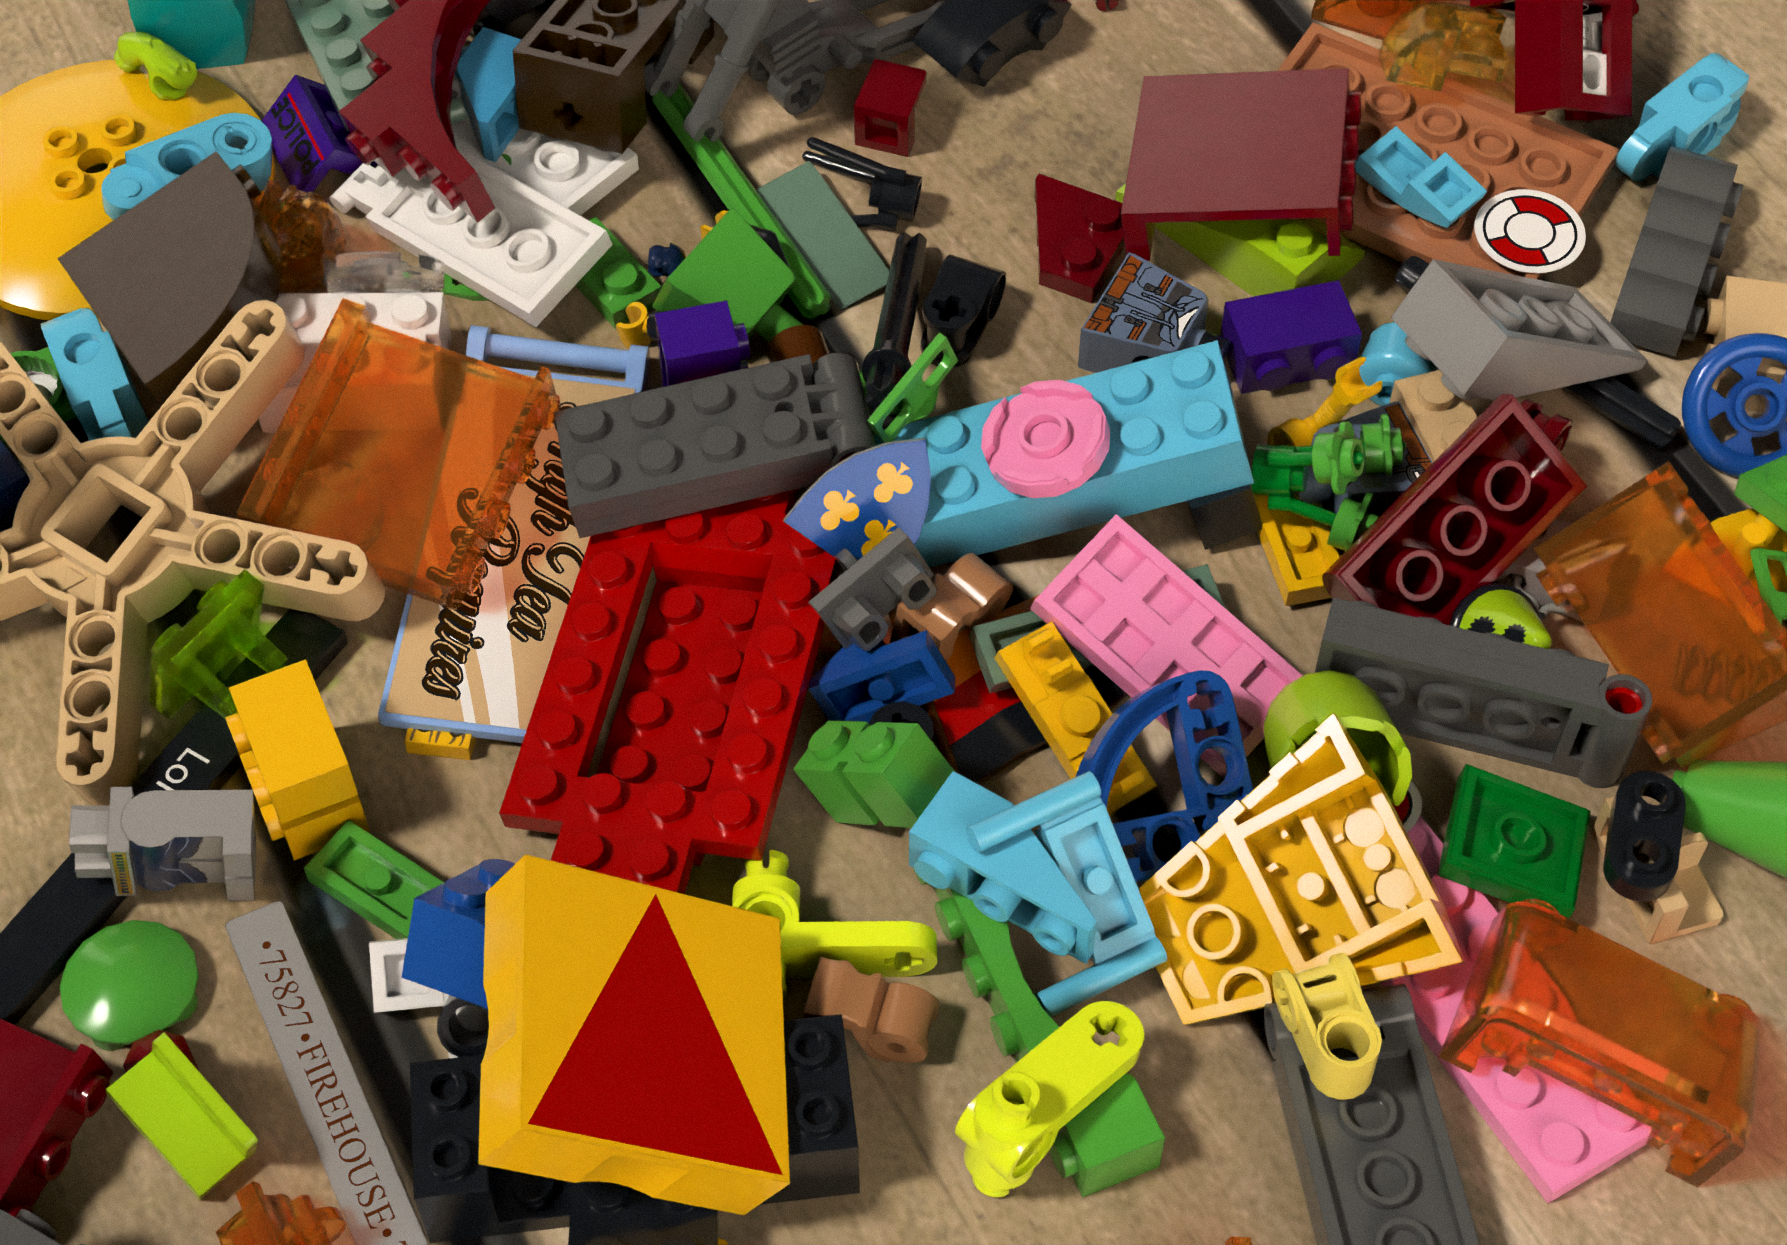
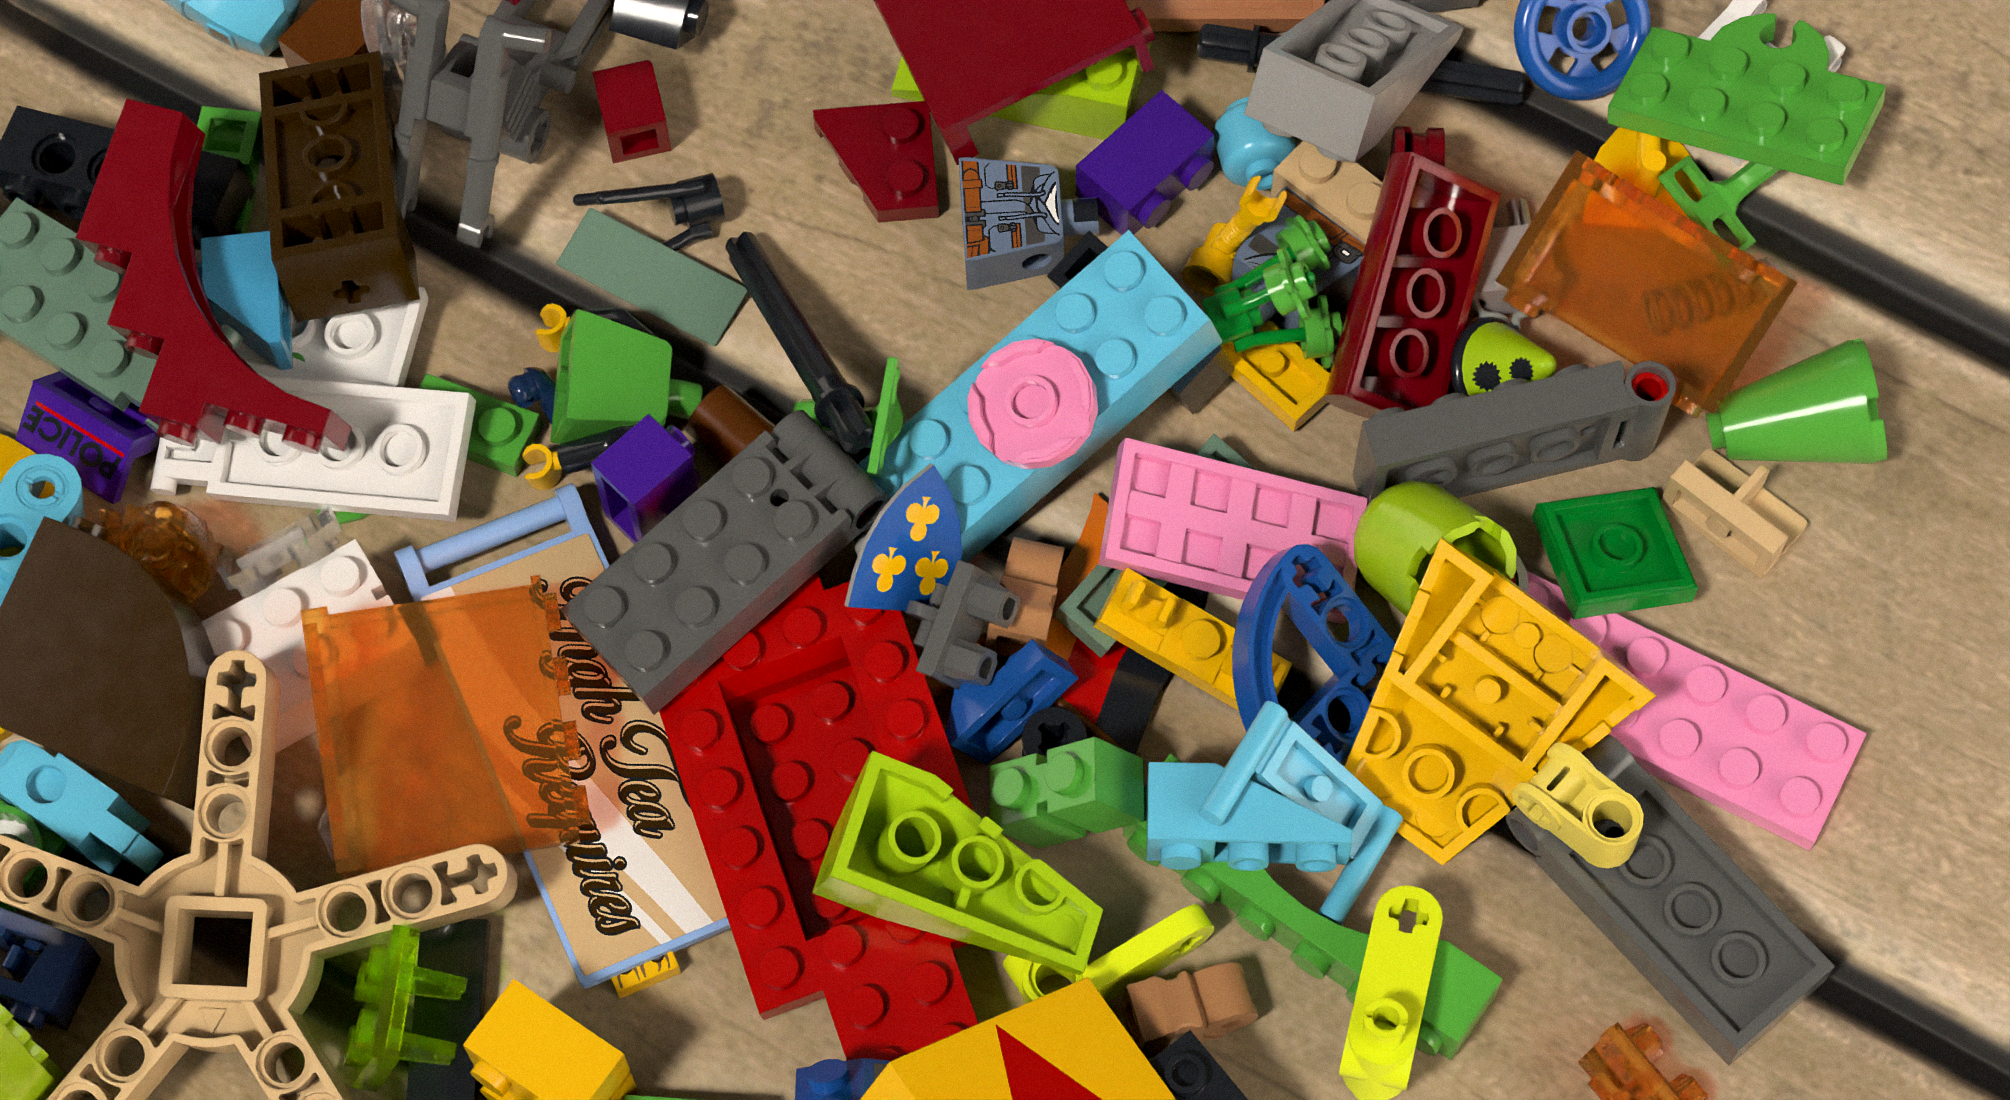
camera: 30 degrees left, 10 degrees up
(712, 758) = (939, 867): none -> lime wedge
(738, 193) = (547, 278): bright green axle -> none
(961, 305) = (832, 291): black piece -> none
(1614, 1031) = (1790, 684): clear orange windscreen -> none
(1644, 830) = (1722, 490): black plate -> none

